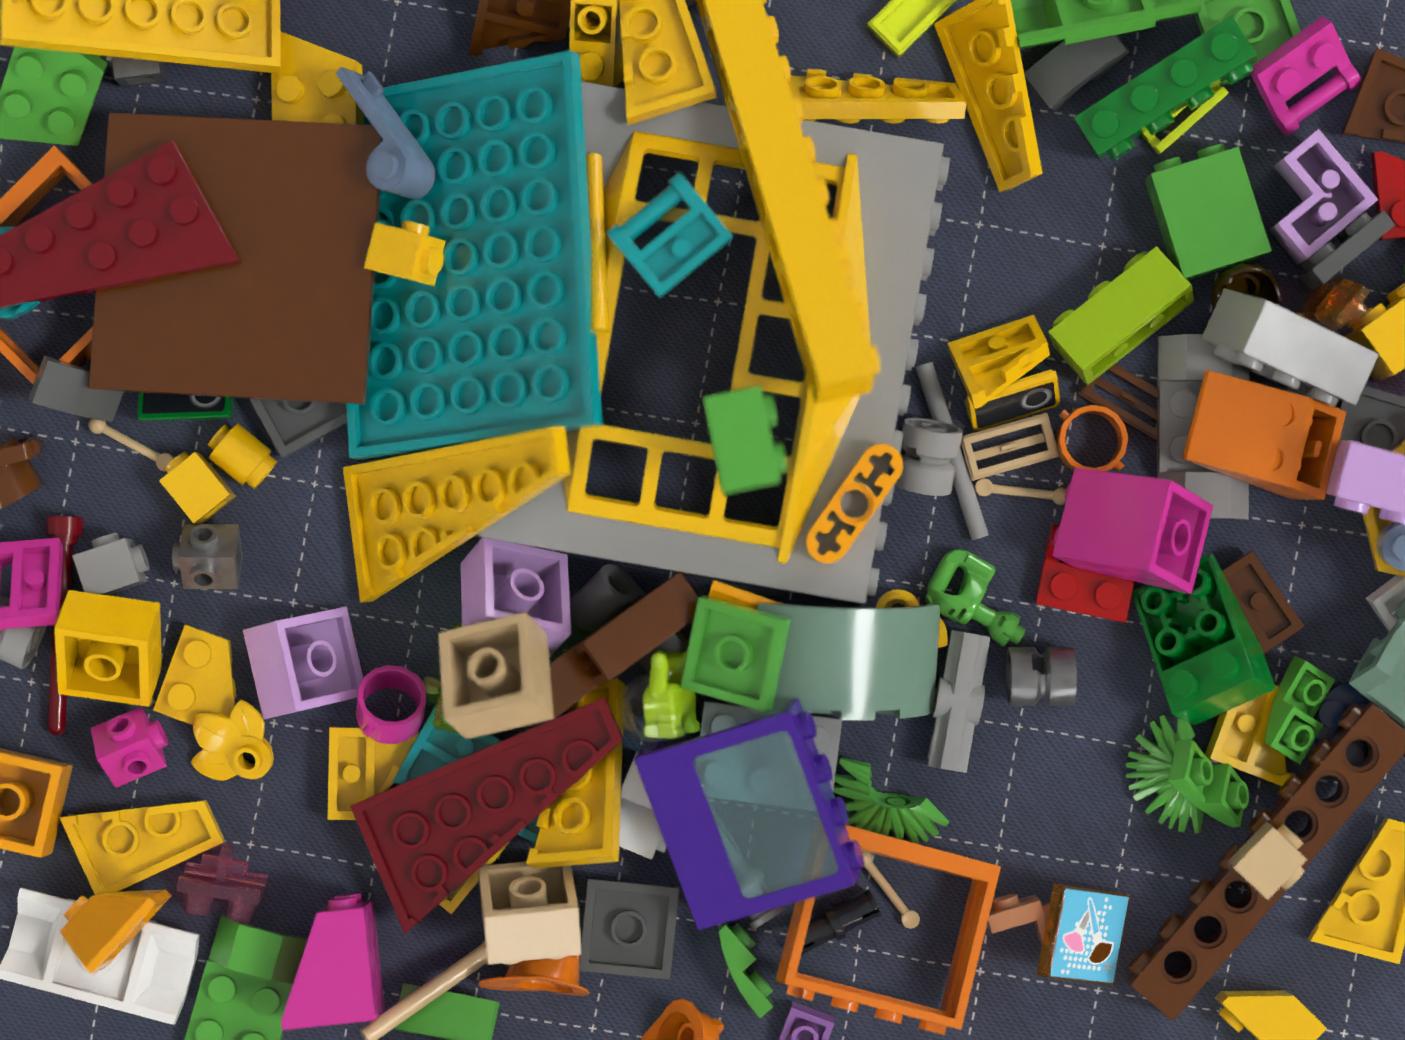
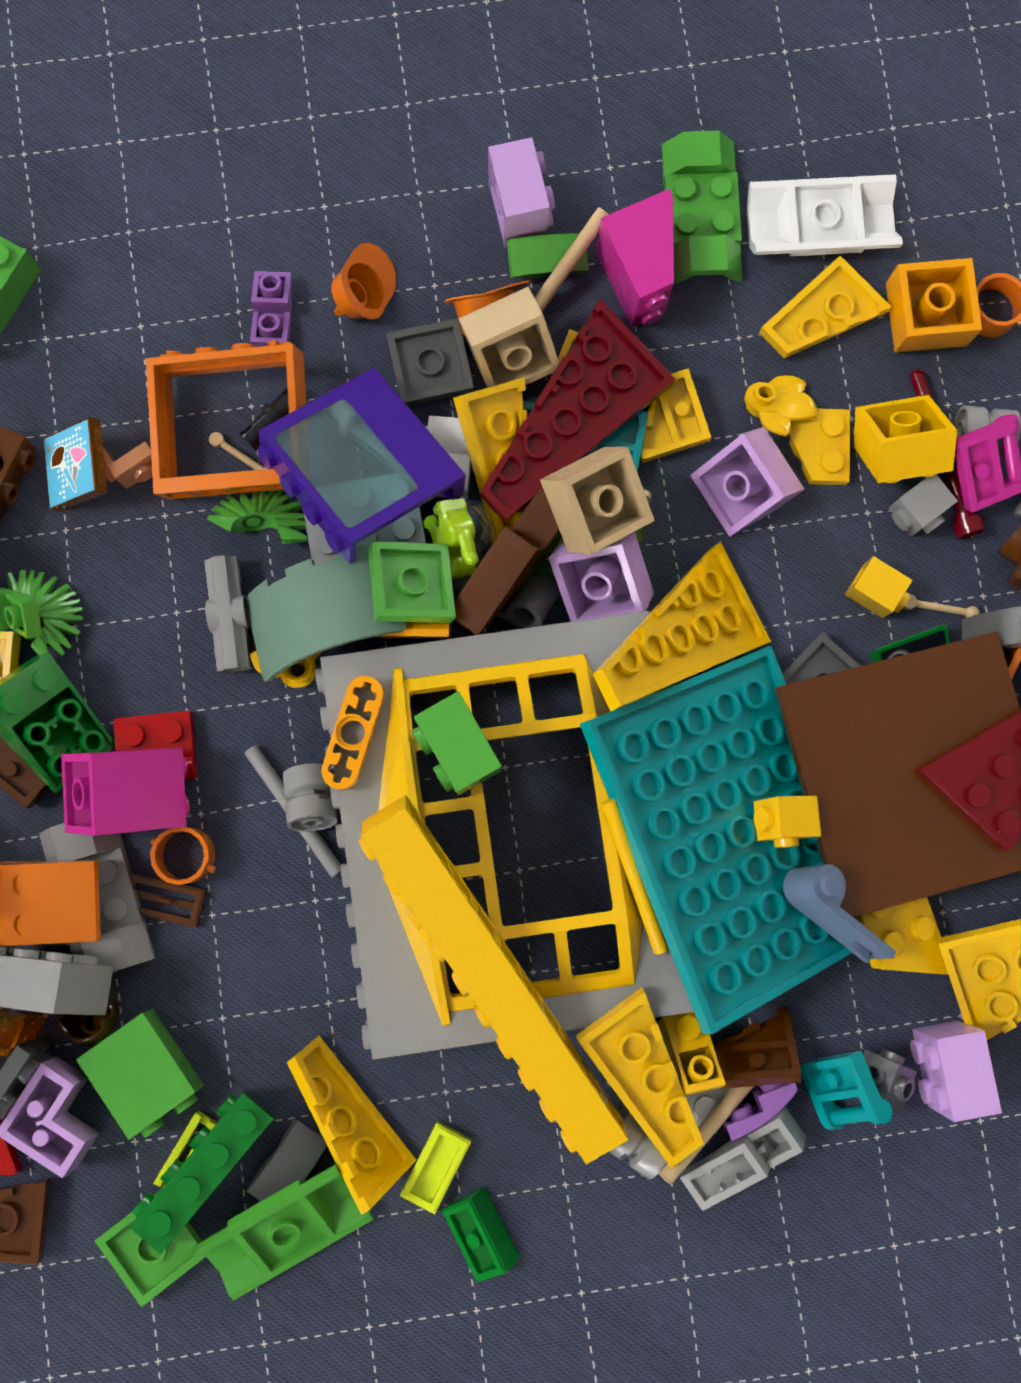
camera: 155 degrees right, 5 degrees down
(107, 923) = (830, 230): light orange slope -> none
(129, 746) = (859, 373): dark pink brick -> none
(209, 556) = (850, 536): flat silver brick -> none
(222, 879) = (752, 298): clear pink hips -> none
(241, 455) = (853, 624): yellow brick -> none
(397, 678) = (683, 488): dark pink piece -> none
(680, 246) = (563, 896): teal plate -> none
(738, 955) = (322, 348): bright green slope -> none
(871, 99) = (446, 1078): yellow wing -> none
(967, 601) = (244, 697): bright green piece -> none
(971, 457) = (277, 811): tan tile -> none
(985, 487) = (259, 790): tan hinge -> none
(998, 357) = (277, 897): yellow wing -> none
(1018, 400) = (256, 868): slope -> none
(1041, 676) = (154, 658): flat silver wheel -> none
(1121, 314) = (187, 966): lime brick -> none
(1297, 66) = (99, 1226): dark pink plate -> none

